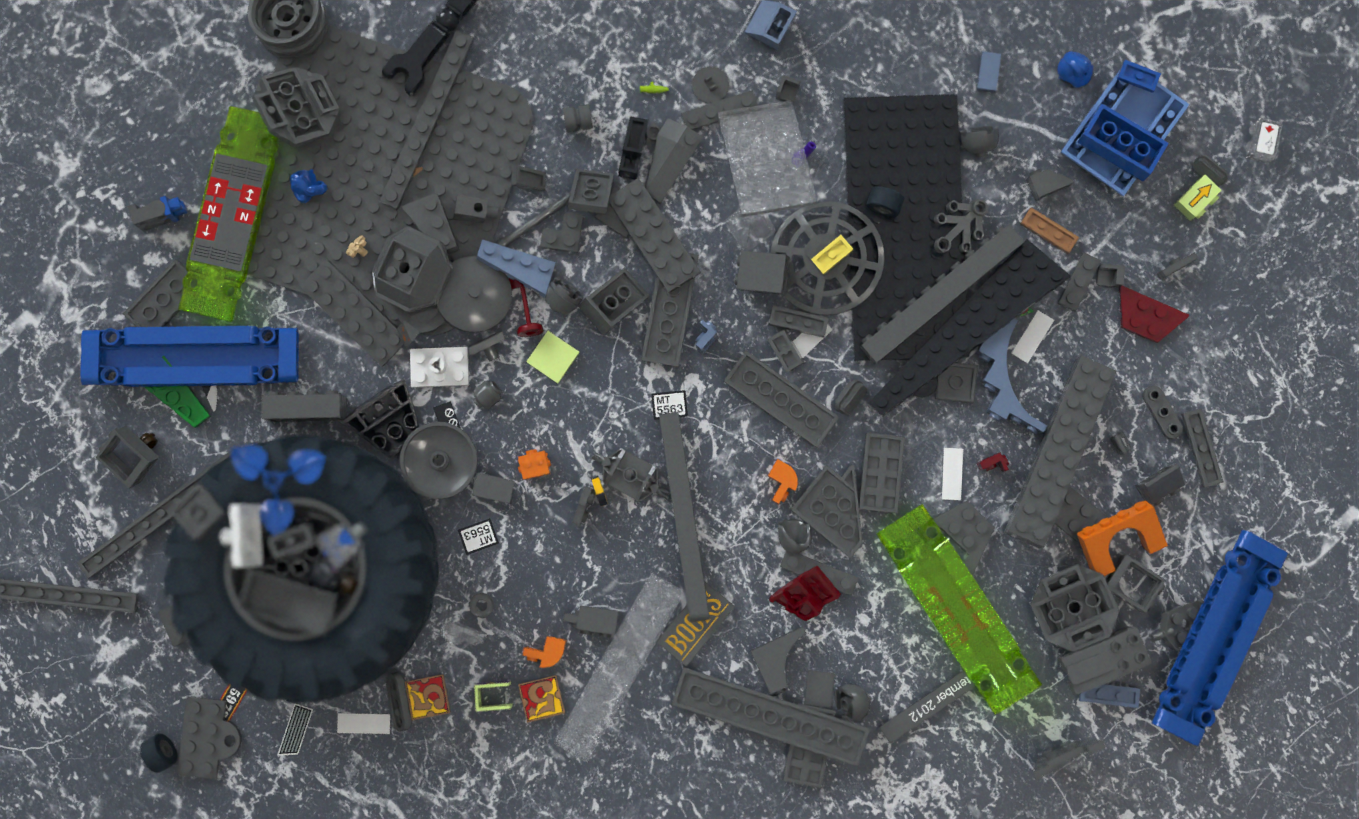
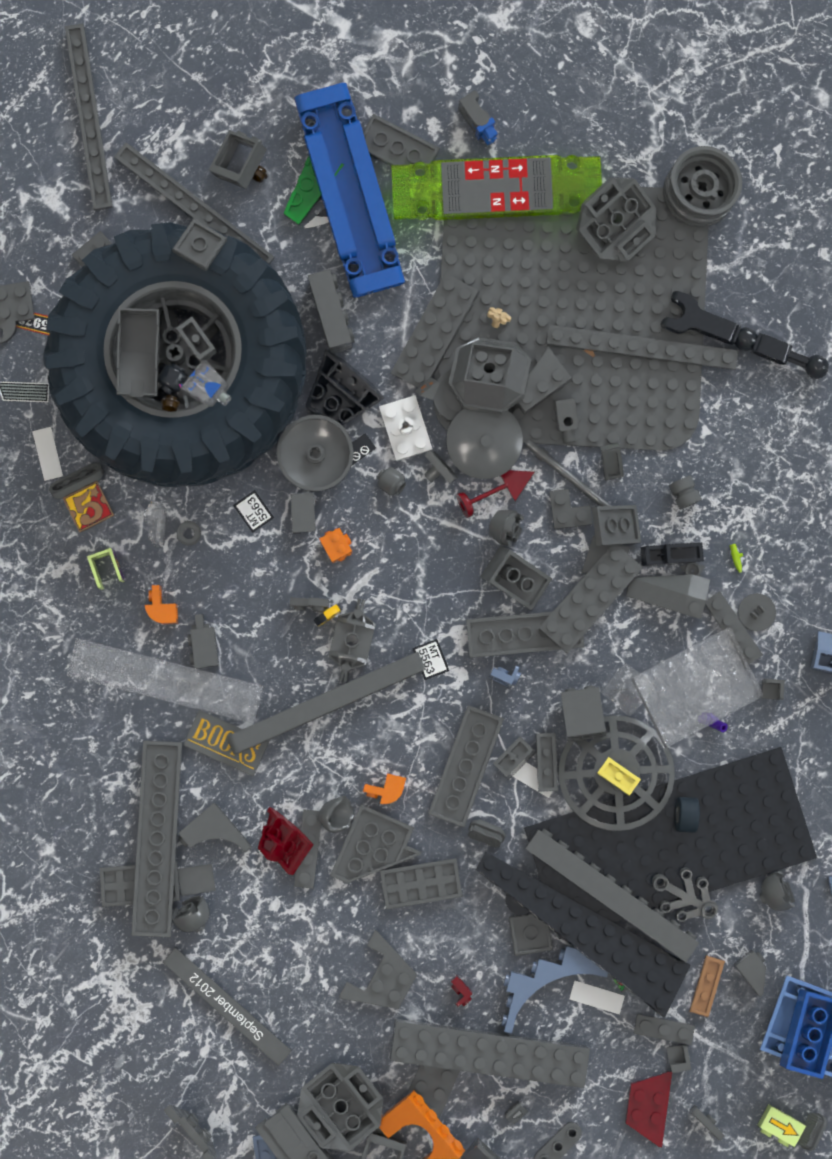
camera: 75 degrees right, 0 degrees up
(244, 535) = (189, 294): white plate -> none
(305, 185) = (543, 250): blue hair -> none
(306, 467) = (270, 331): blue plant -> none
(525, 268) = (524, 475): sand blue wing -> none
(541, 698) = (115, 615): tile -> none
(553, 357) = (445, 534): yellowish green tile -> none
(952, 474) = (439, 953): white sticker -> none
(959, 609) = (308, 994): clear neon green panel -> none

